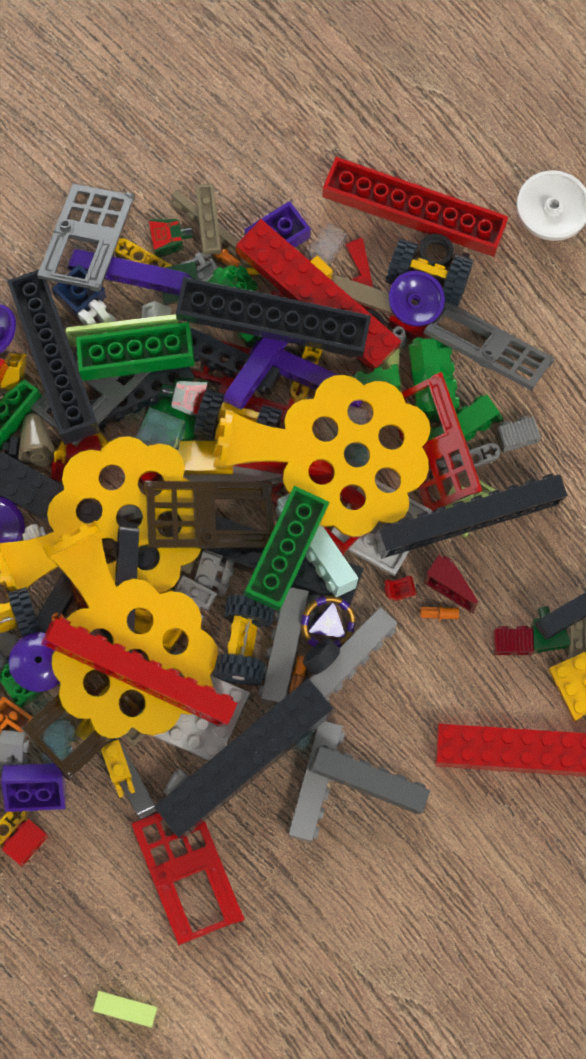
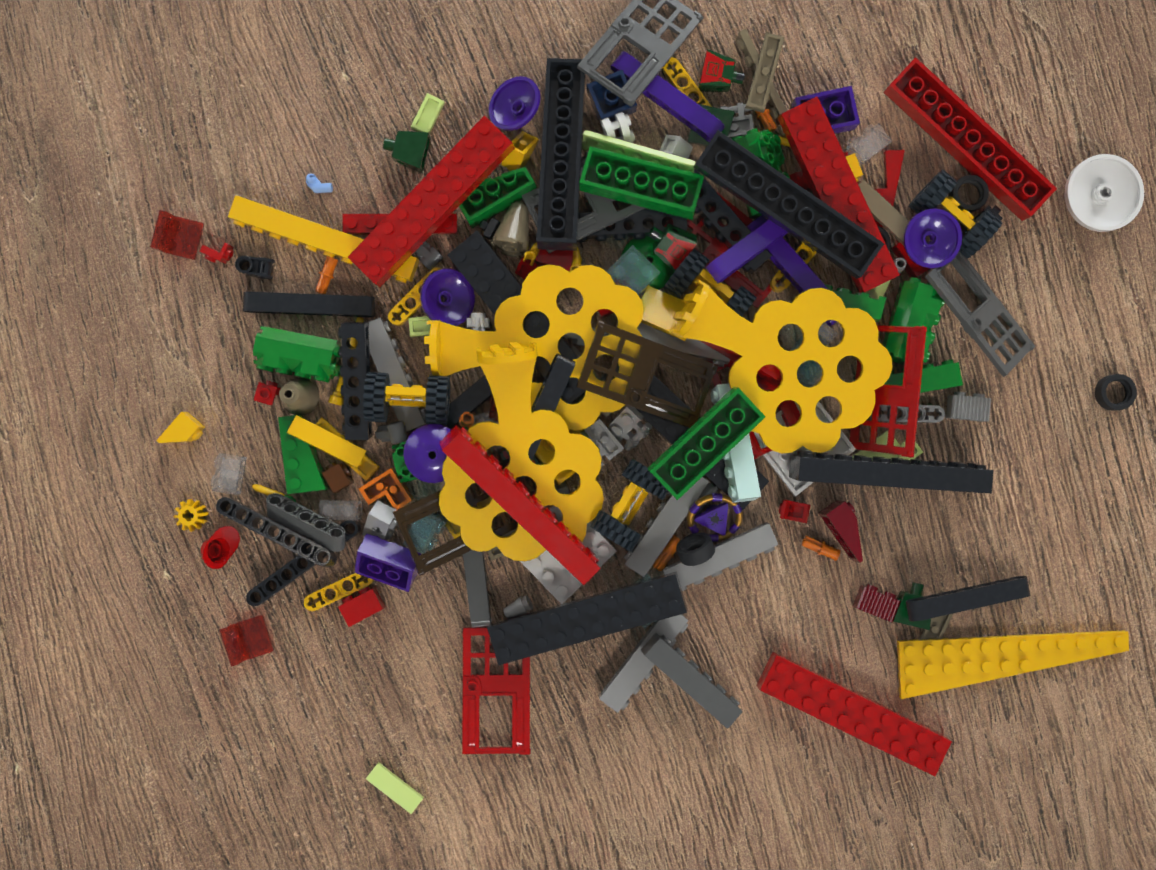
camera: 20 degrees right, 15 degrees up
(117, 766) = (470, 575): yellow hinge -> none

